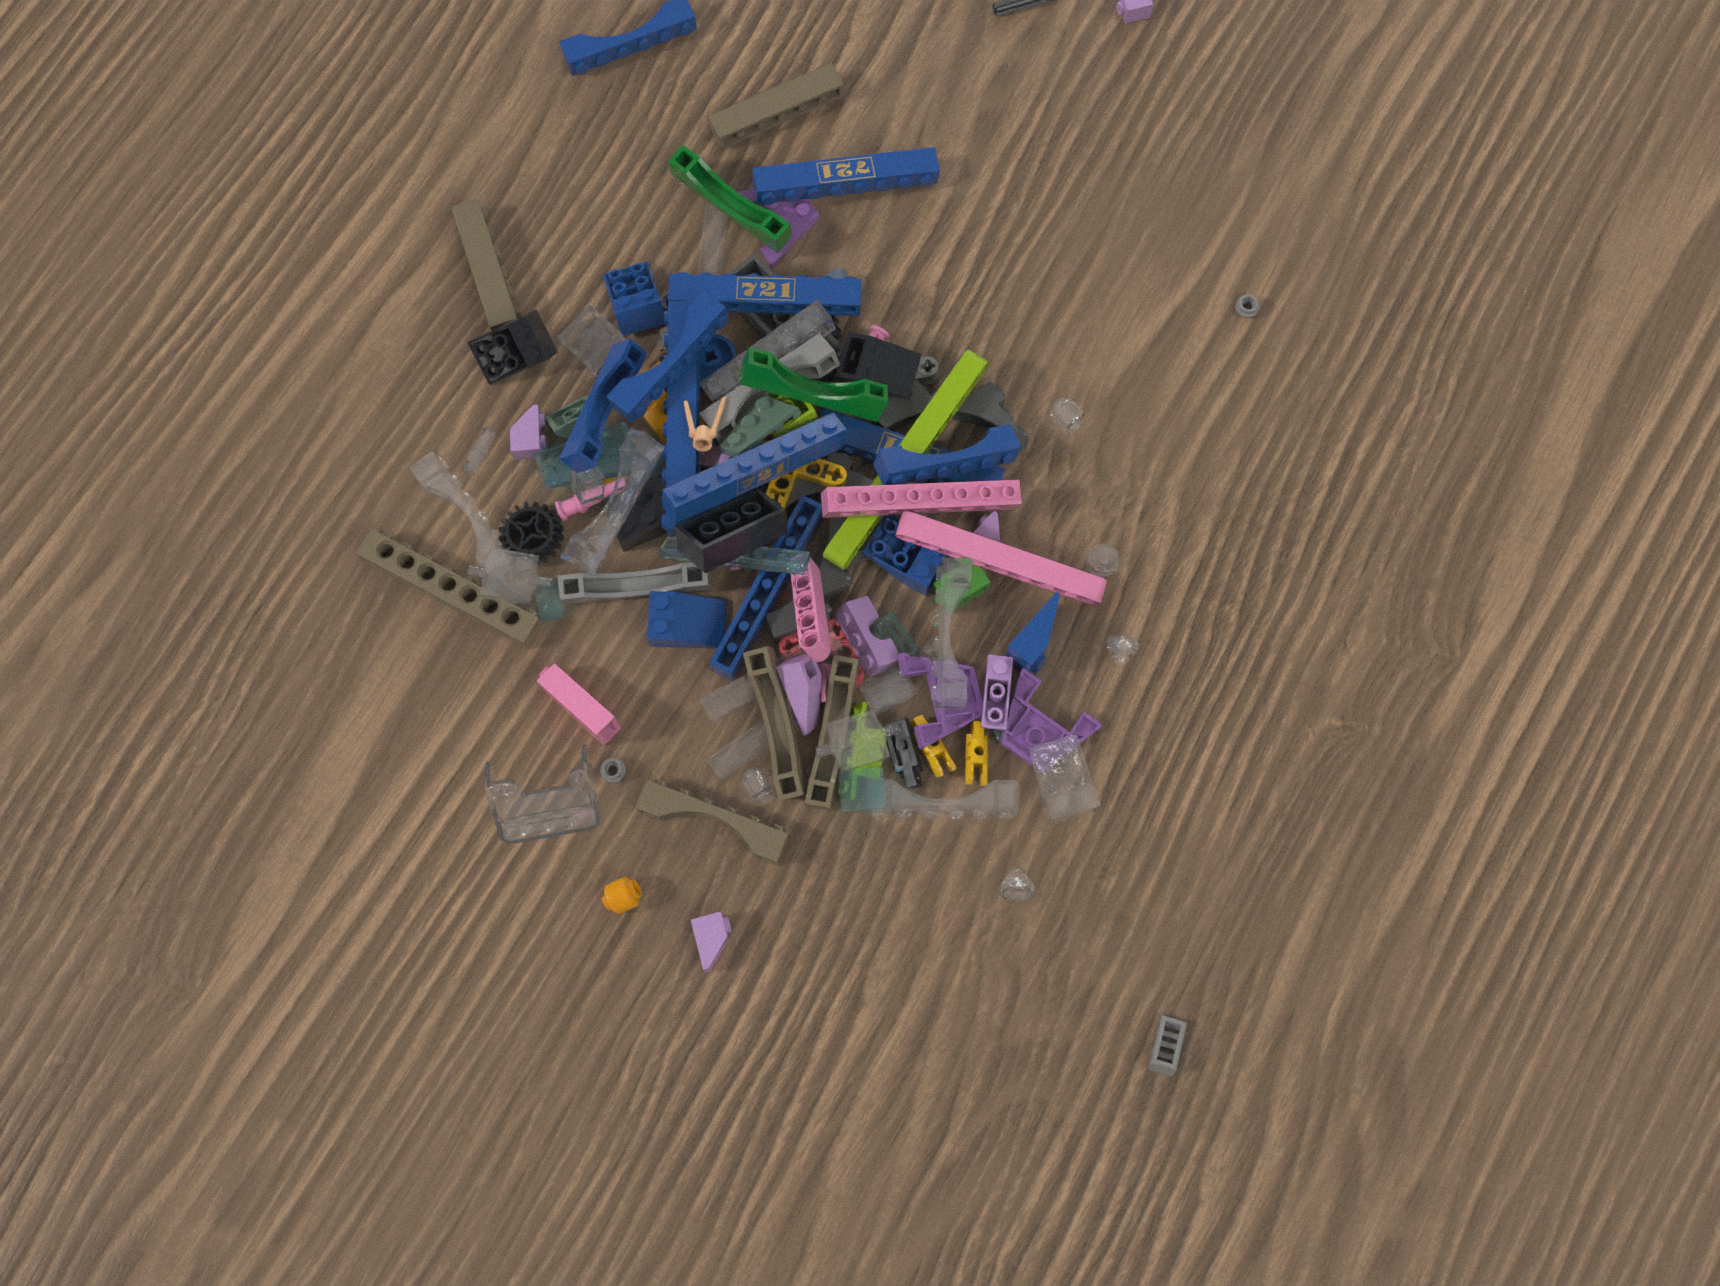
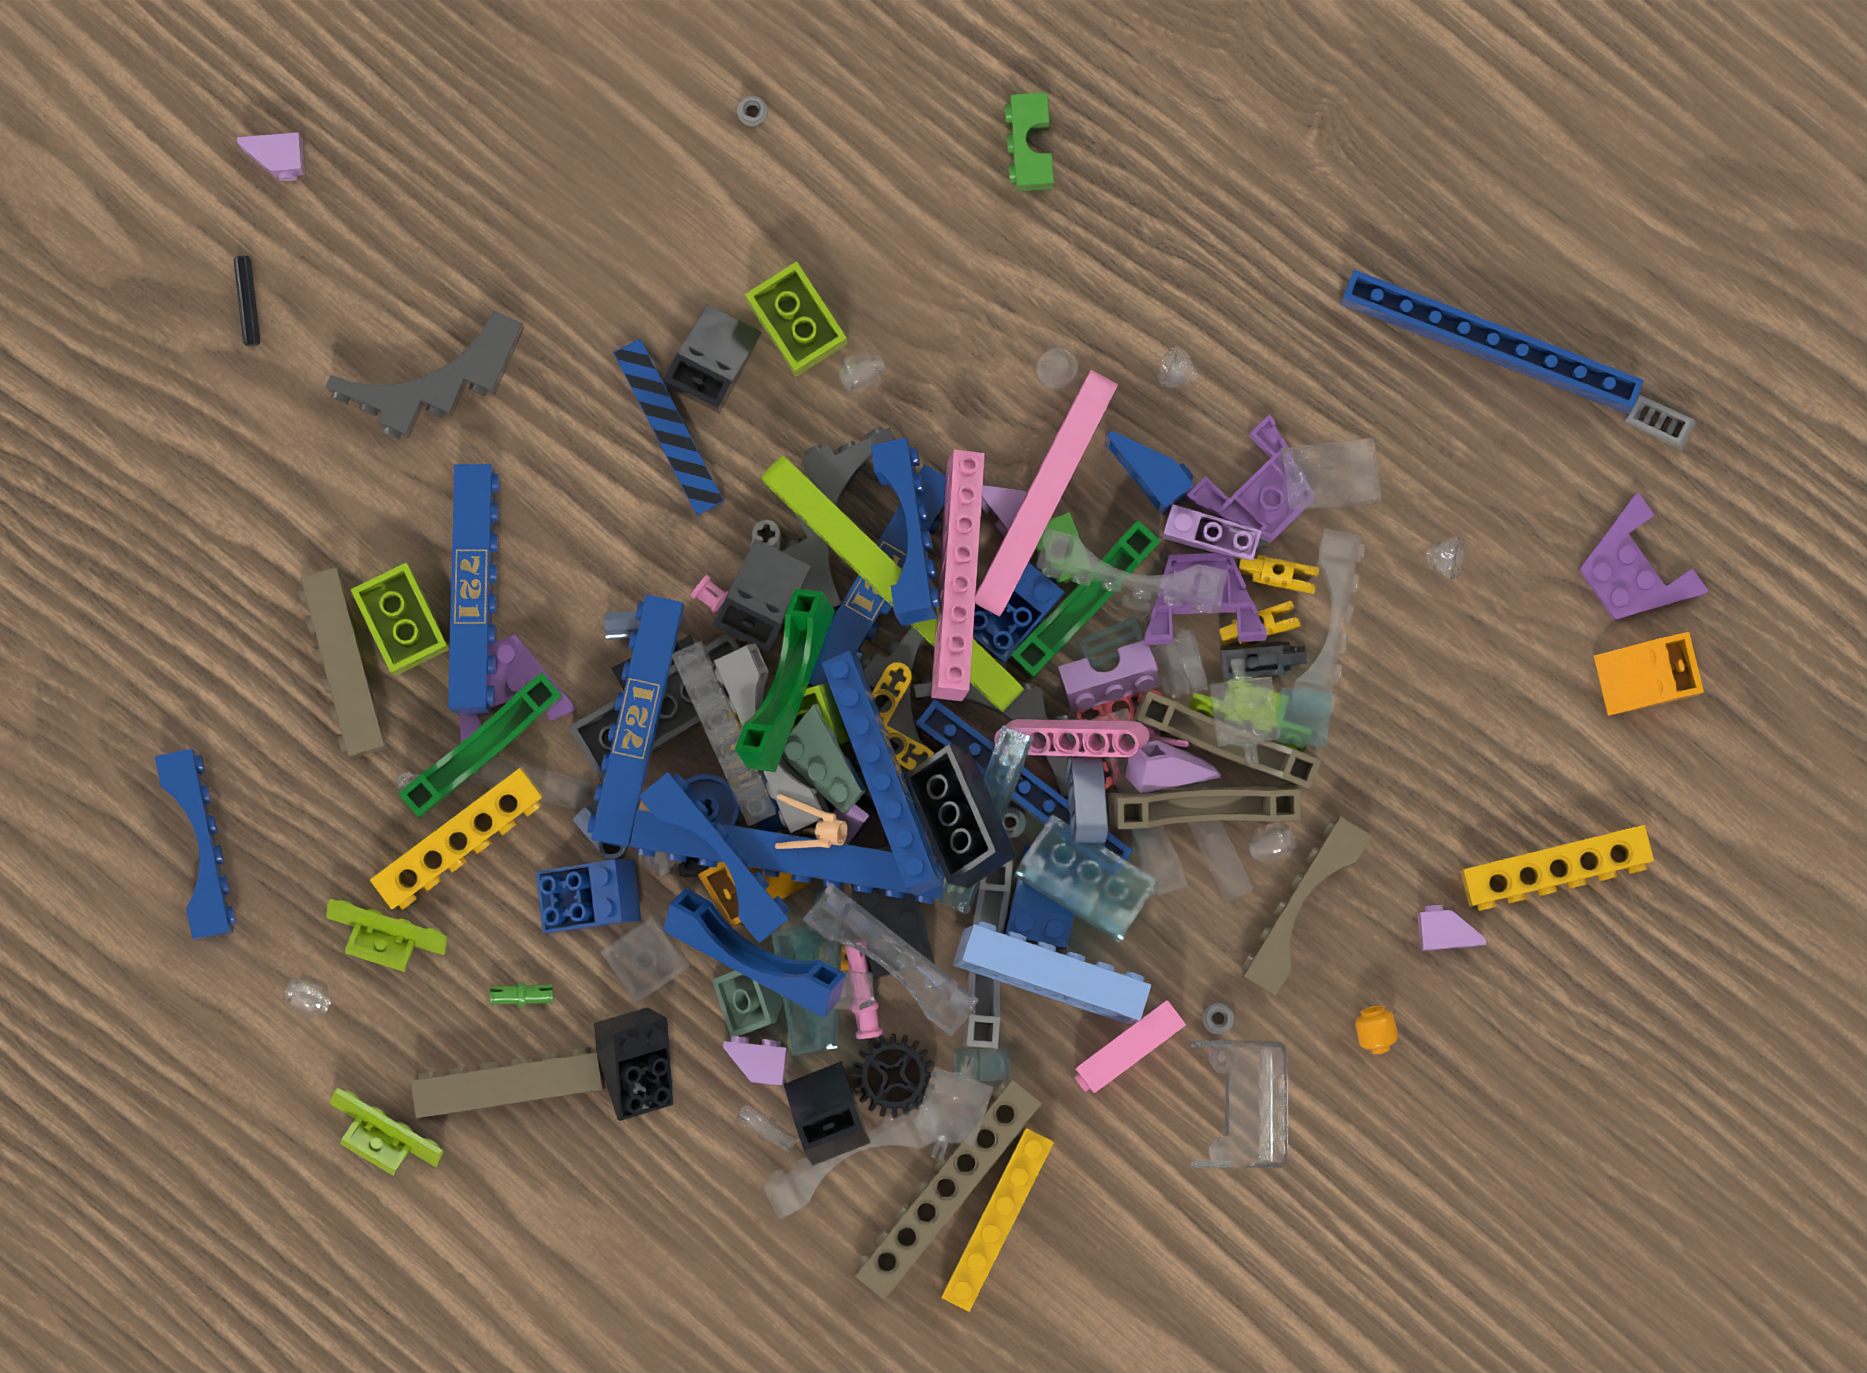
camera: 80 degrees left, 10 degrees up
(433, 190) = (379, 1137): none -> lime bracket
(444, 630) = (997, 1220): none -> yellow arch
(491, 485) = (826, 1113): none -> black slope
(531, 125) = (307, 996): none -> clear head
(554, 265) = (521, 994): none -> bright green pin
(579, 167) = (384, 938): none -> lime bracket
(622, 162) = (389, 881): none -> yellow brick
(623, 627) = (1051, 973): none -> light blue brick
(702, 640) = (1086, 879): none -> clear light blue slope
(740, 592) = (1020, 822): none -> light grey plate
(757, 956) = (1632, 840): none -> yellow brick
(762, 628) = (1087, 800): none -> sand blue beam
(814, 131) = (400, 619): none -> lime brick
(892, 589) = (1082, 603): none -> green arch
(953, 1069) = (1648, 674): none -> light orange slope
(994, 291) = (668, 427): none -> tile
(1009, 153) = (401, 403): none -> dark grey arch
(1032, 1036) = (1624, 576): none -> medium lavender wing
(1052, 308) = (712, 358): none -> black slope
(1096, 360) = (796, 319): none -> lime brick
(1201, 891) = (1492, 342): none -> blue brick
(1294, 499) = (1030, 169): none -> bright green arch

